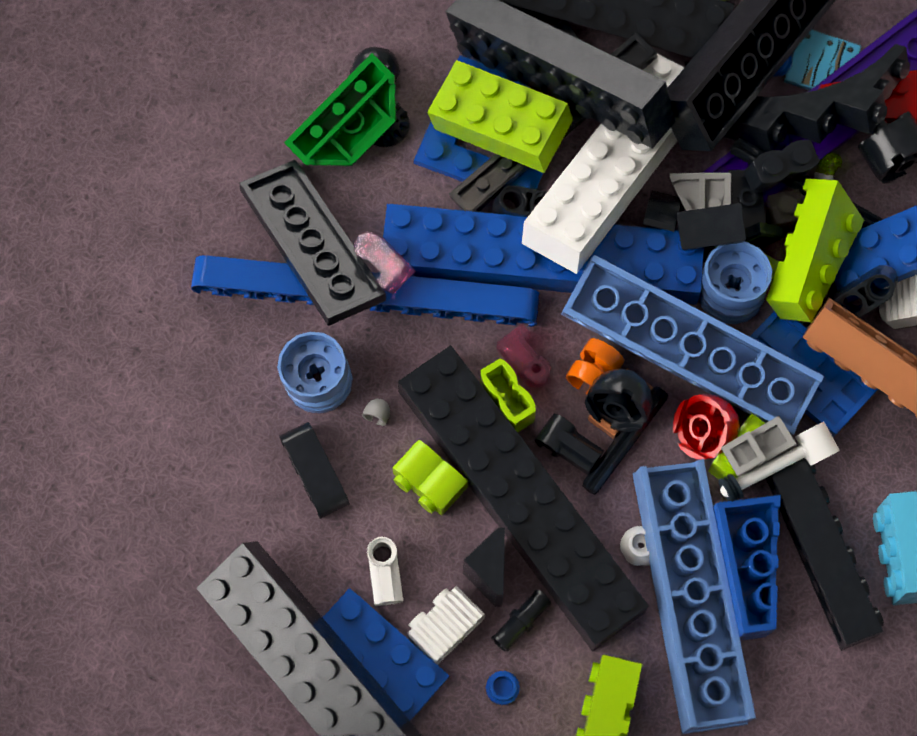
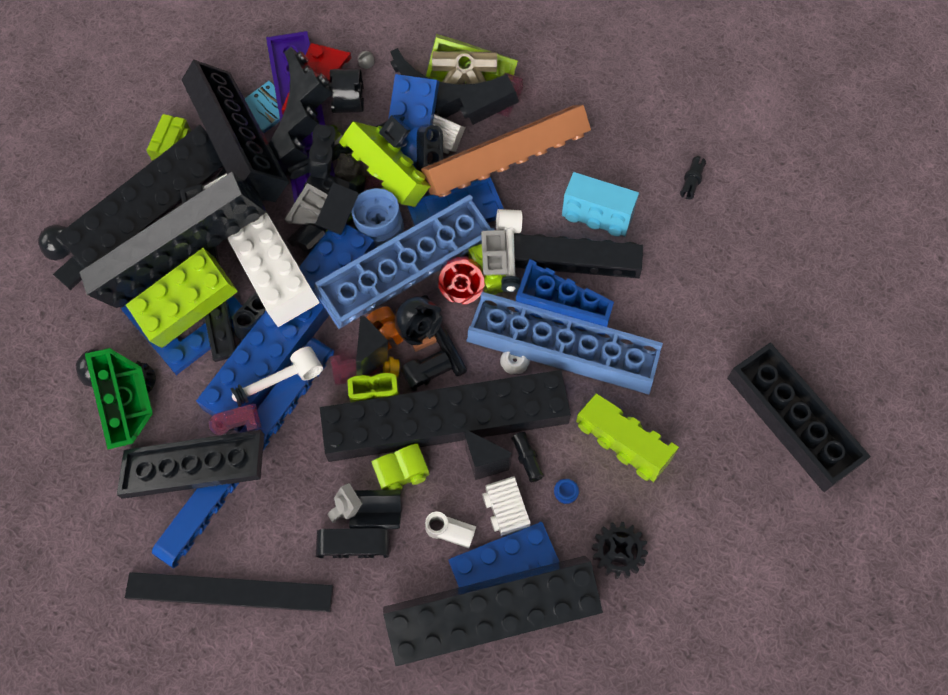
camera: 60 degrees left, 5 degrees down
(196, 367) = (229, 592): none -> black tile
(312, 354) = (276, 497): medium blue wheel -> none
(351, 436) = (346, 504): none -> light grey plate
(365, 475) = (378, 510): none -> black panel
(378, 409) = (334, 479): light grey hinge -> none
(493, 299) = (304, 364): none -> white piece
(546, 362) = (371, 348): none -> black slope
(549, 402) = (391, 366): none -> yellow plate
(858, 239) = (395, 131): none -> black panel

